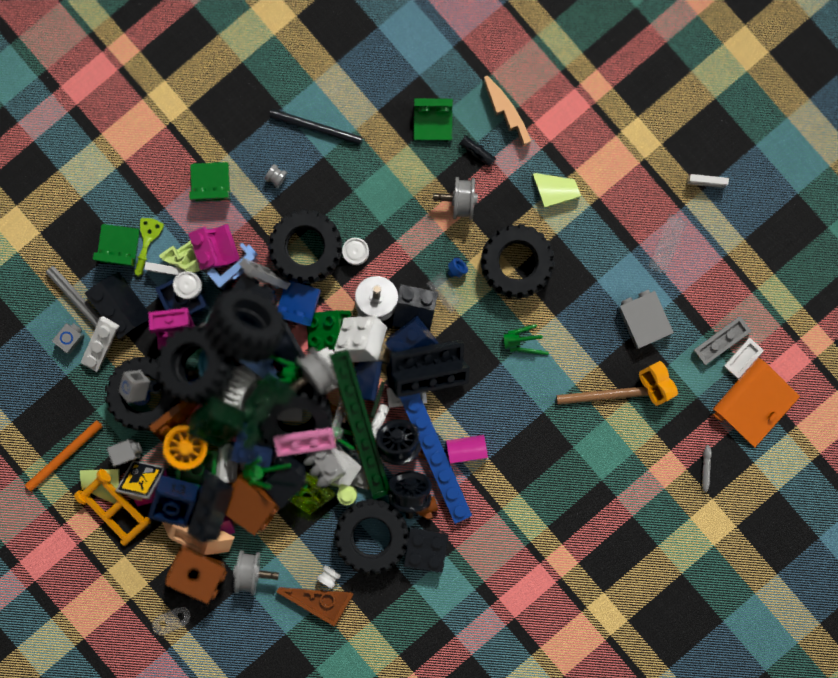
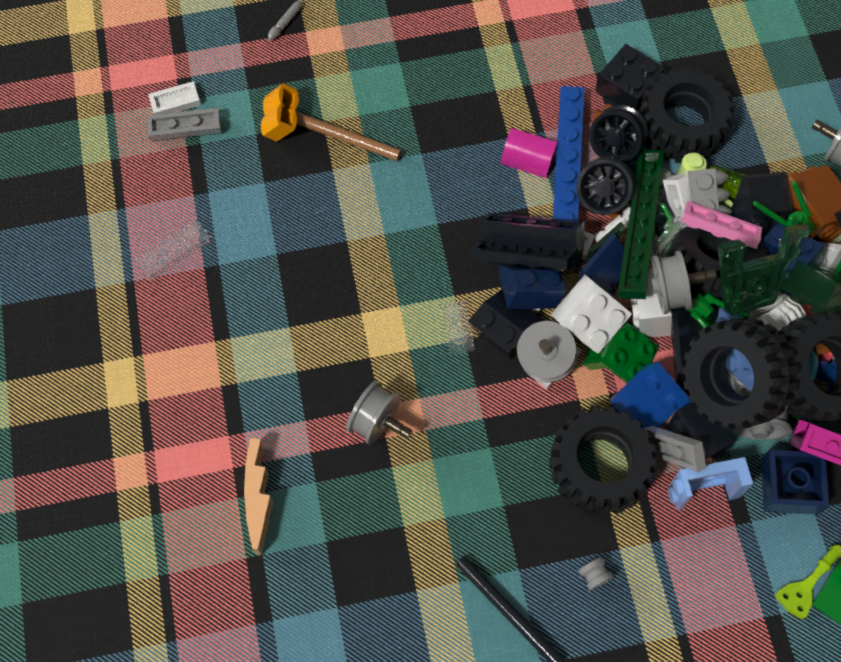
camera: 145 degrees left, 20 degrees down
(164, 269) = (800, 532): white tile -> none
(182, 258) = (766, 529): yellowish green slope -> none
(187, 285) = (785, 482): white wheel -> none
(210, 182) = (689, 612): green bracket -> none
(214, 247) = (711, 518): dark pink window -> none
(322, 603) = (774, 85): dark orange wing -> none
(328, 576) = (753, 104): white wheel -> none
(355, 251) = (540, 427): white wheel -> none
(433, 119) = (354, 535): green bracket -> none
(457, 268) = (427, 344): blue tile -> none
(477, 151) = (322, 467): black pin -> none
(512, 340) = (410, 235): green plant -> none
(517, 235) = (348, 281): black tyre -> none
(555, 189) = (257, 372): yellowish green slope -> none
(645, 319) = (250, 183): light grey brick -> none
(711, 181) = (81, 289): white tile -> none
(756, 402) = (192, 53): orange door -> none

